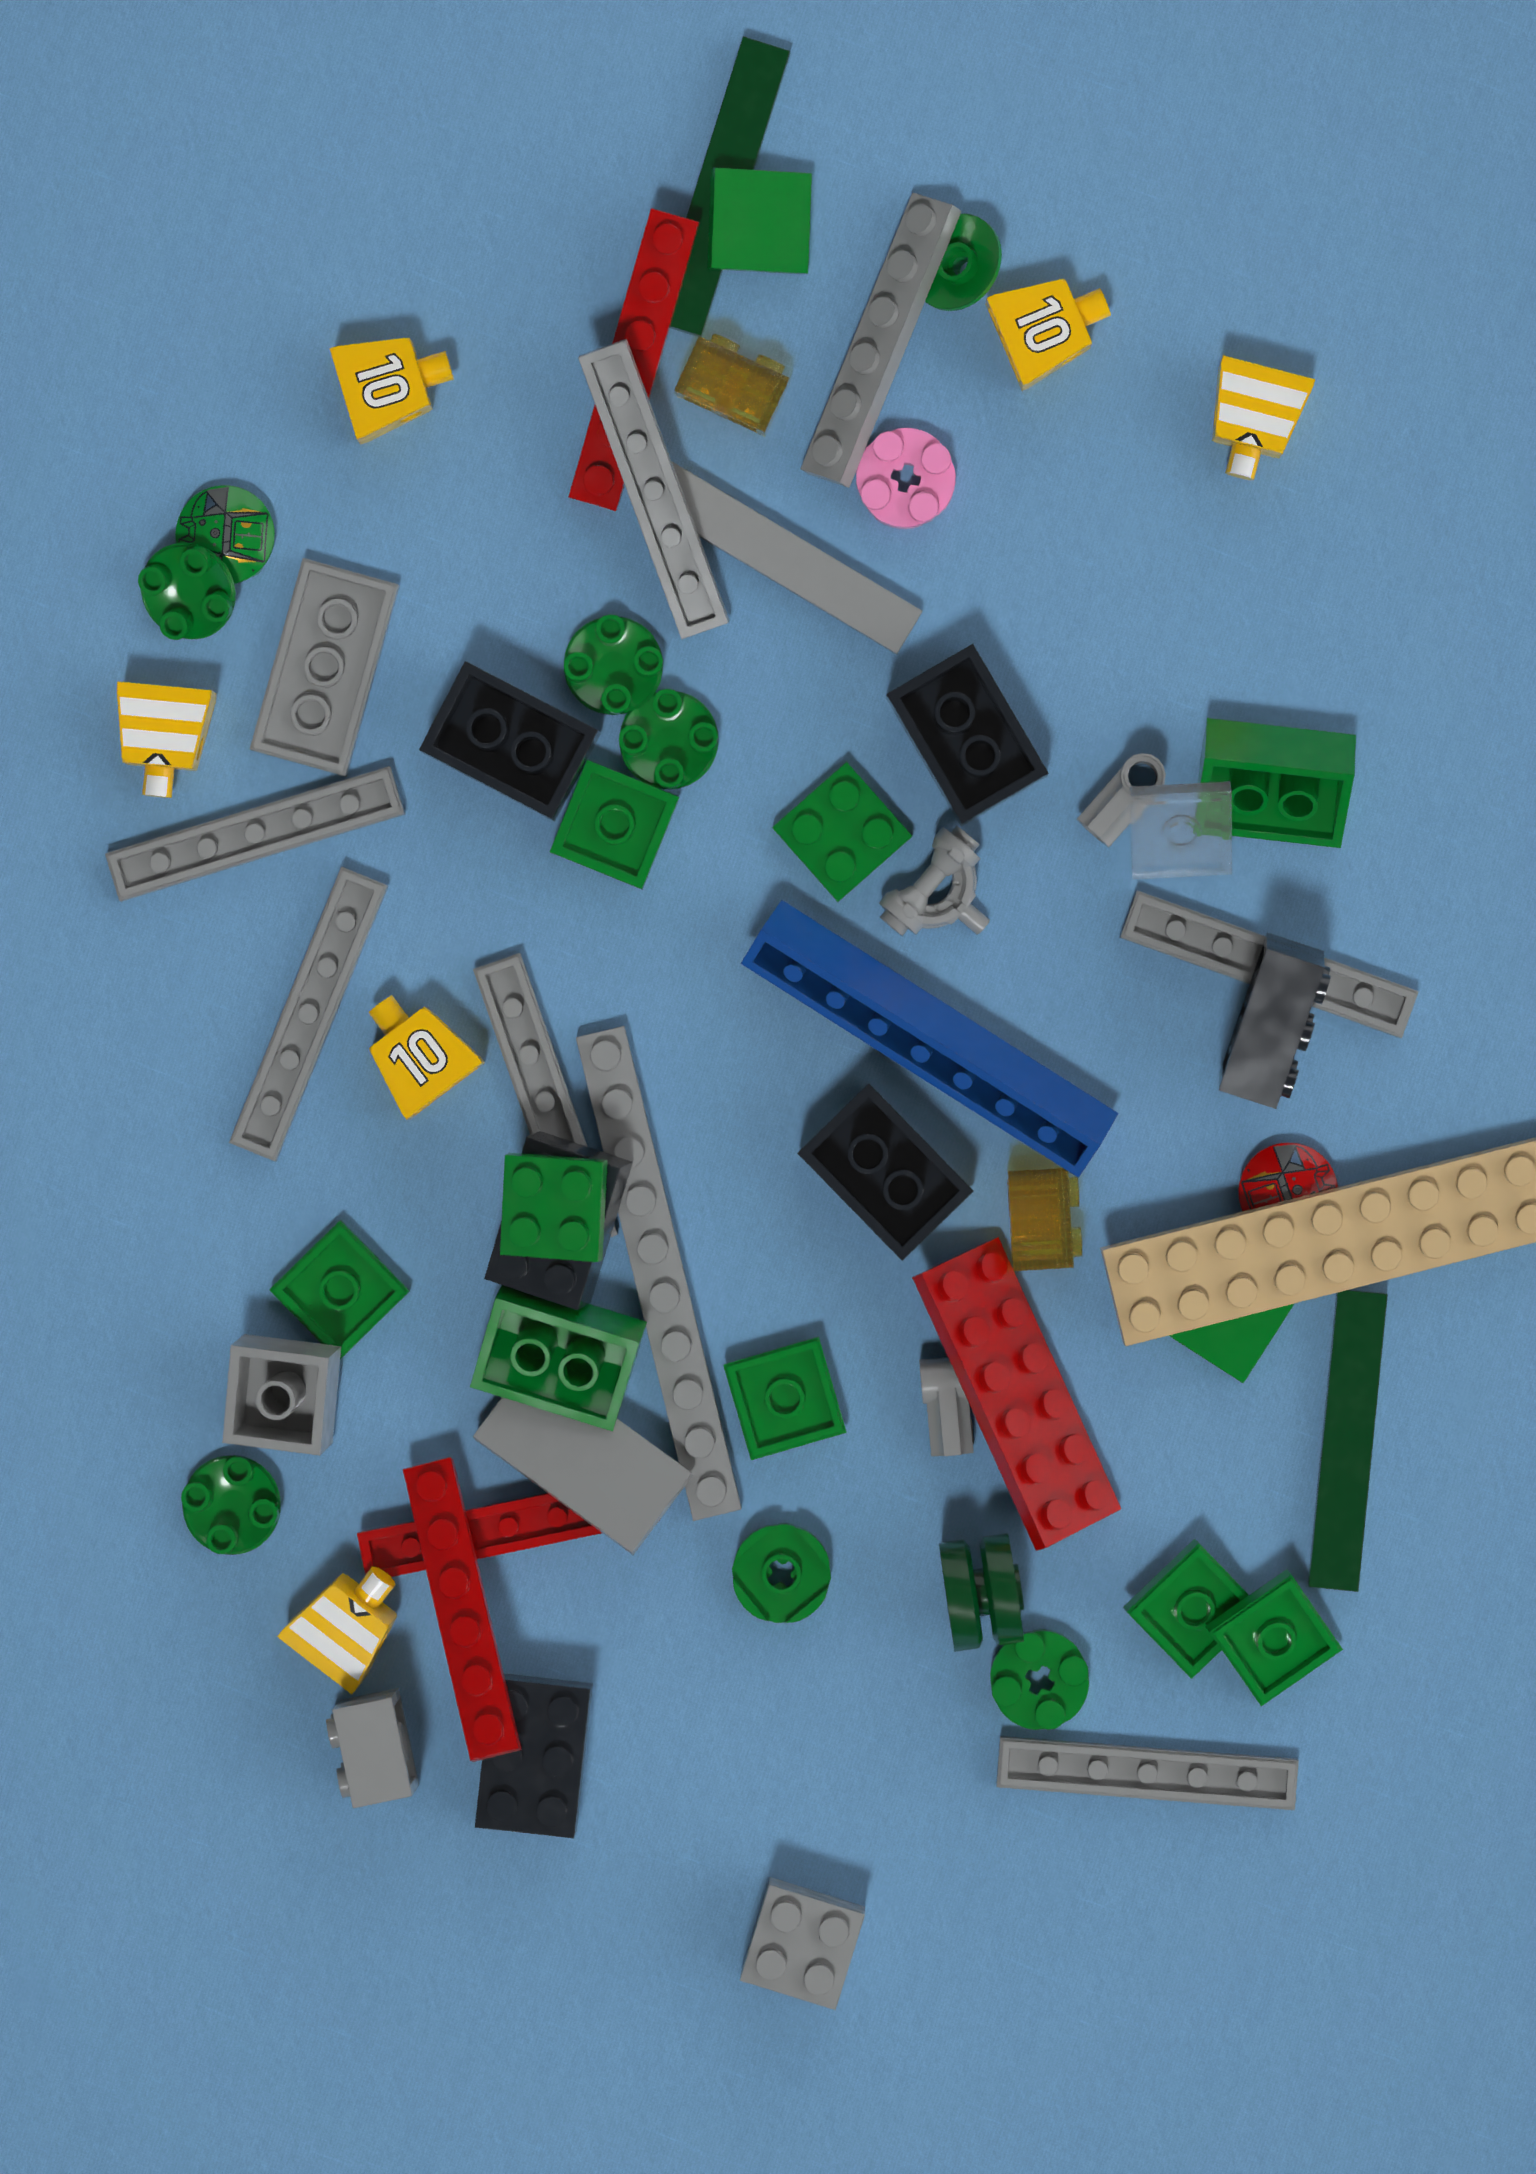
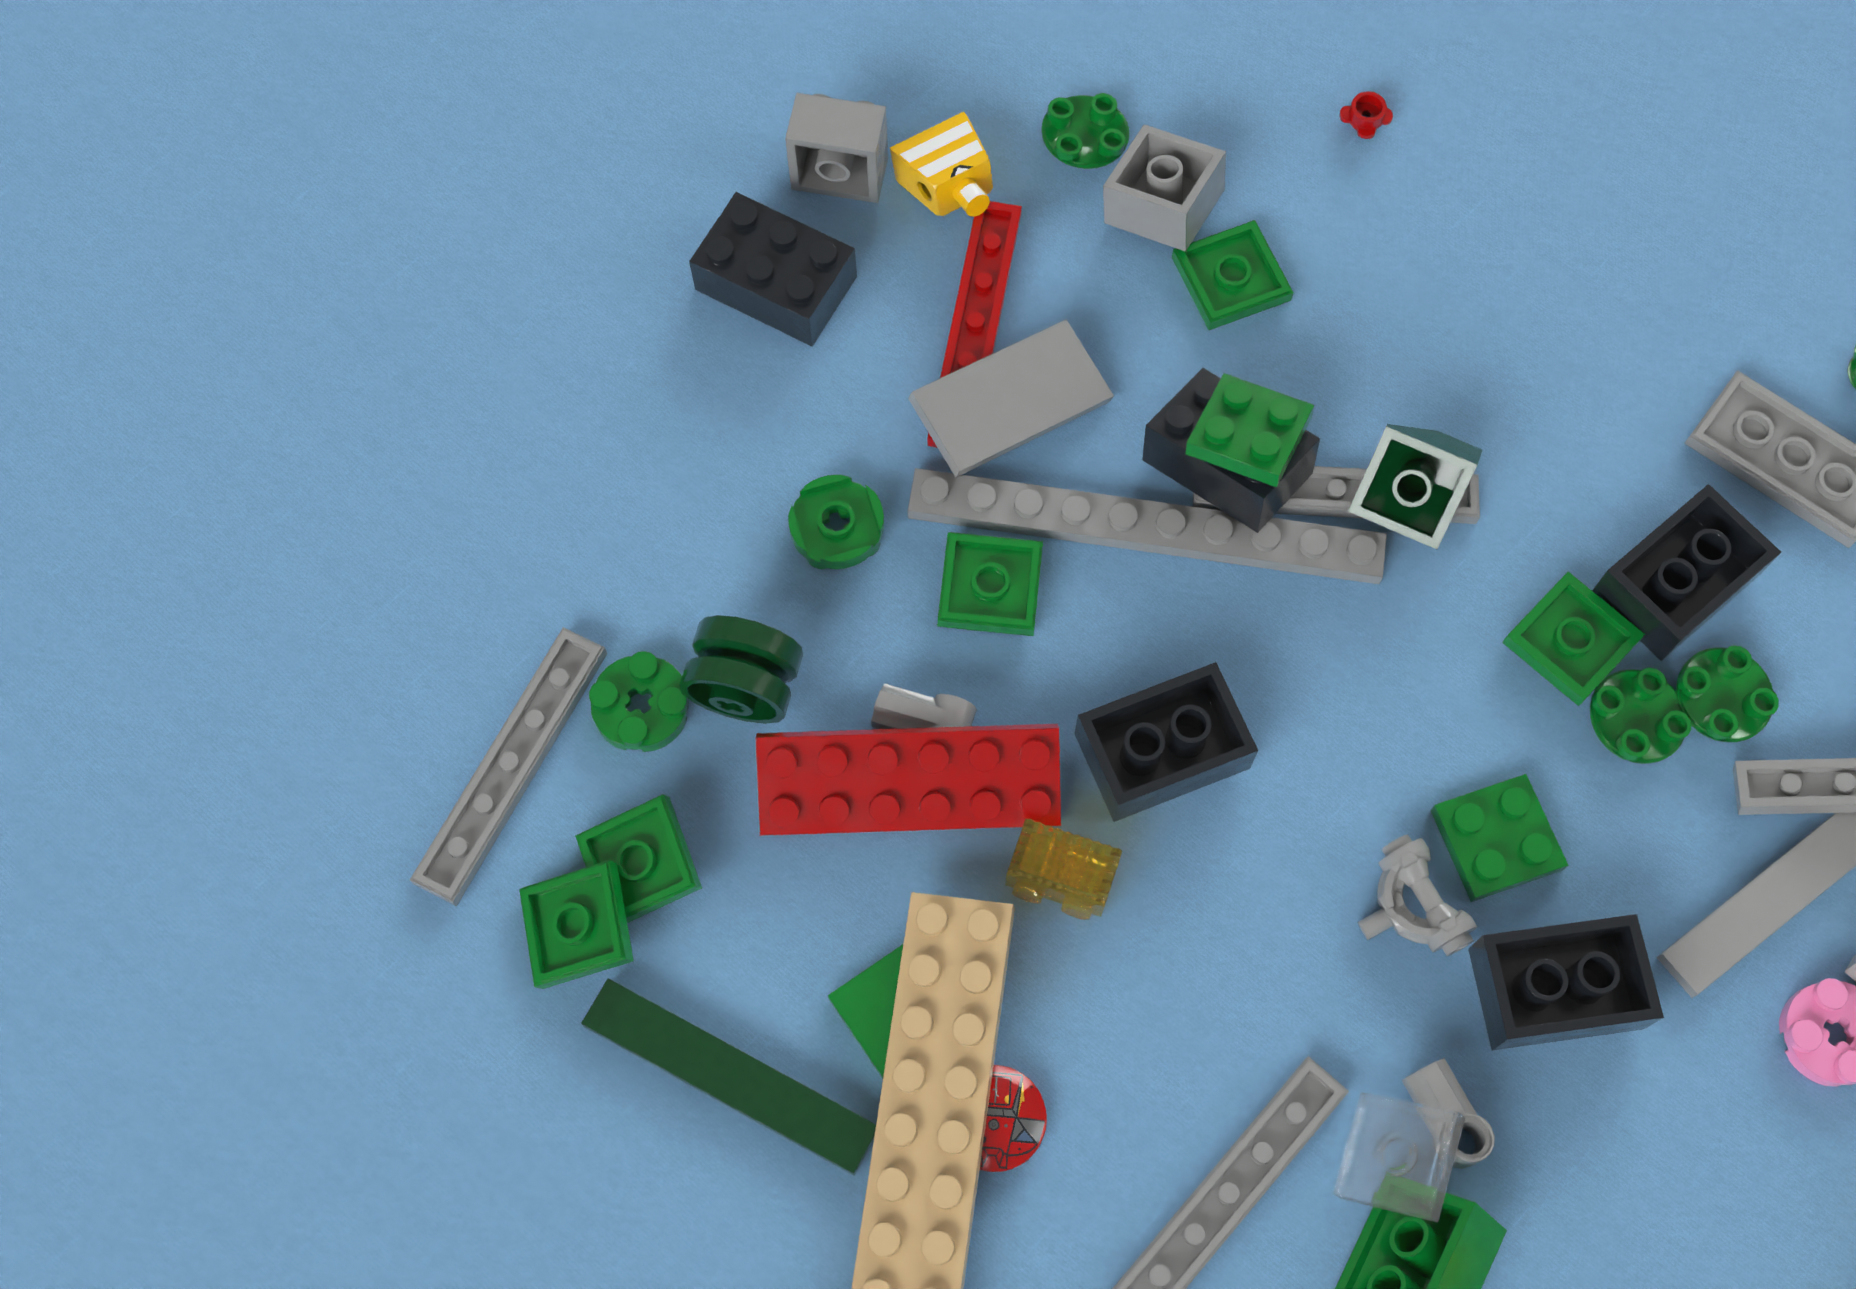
camera: 115 degrees right, 20 degrees down
(75, 1221) = (1368, 104): none -> red plate
(163, 731) = (1777, 307): torso -> none
(255, 834) = (1657, 354): light grey tile -> none
(308, 1014) = (1484, 337): light grey tile -> none
(419, 1056) = (1416, 393): yellow torso -> none
(461, 1609) = (922, 247): red plate -> none
(519, 1027) = (1415, 482): none -> slope
(558, 1357) = (1102, 408): green slope -> none
(802, 1943) = (510, 413): light grey brick -> none
(929, 1038) = (1274, 832): blue brick -> none
(1274, 1021) = (1176, 1163): black brick -> none

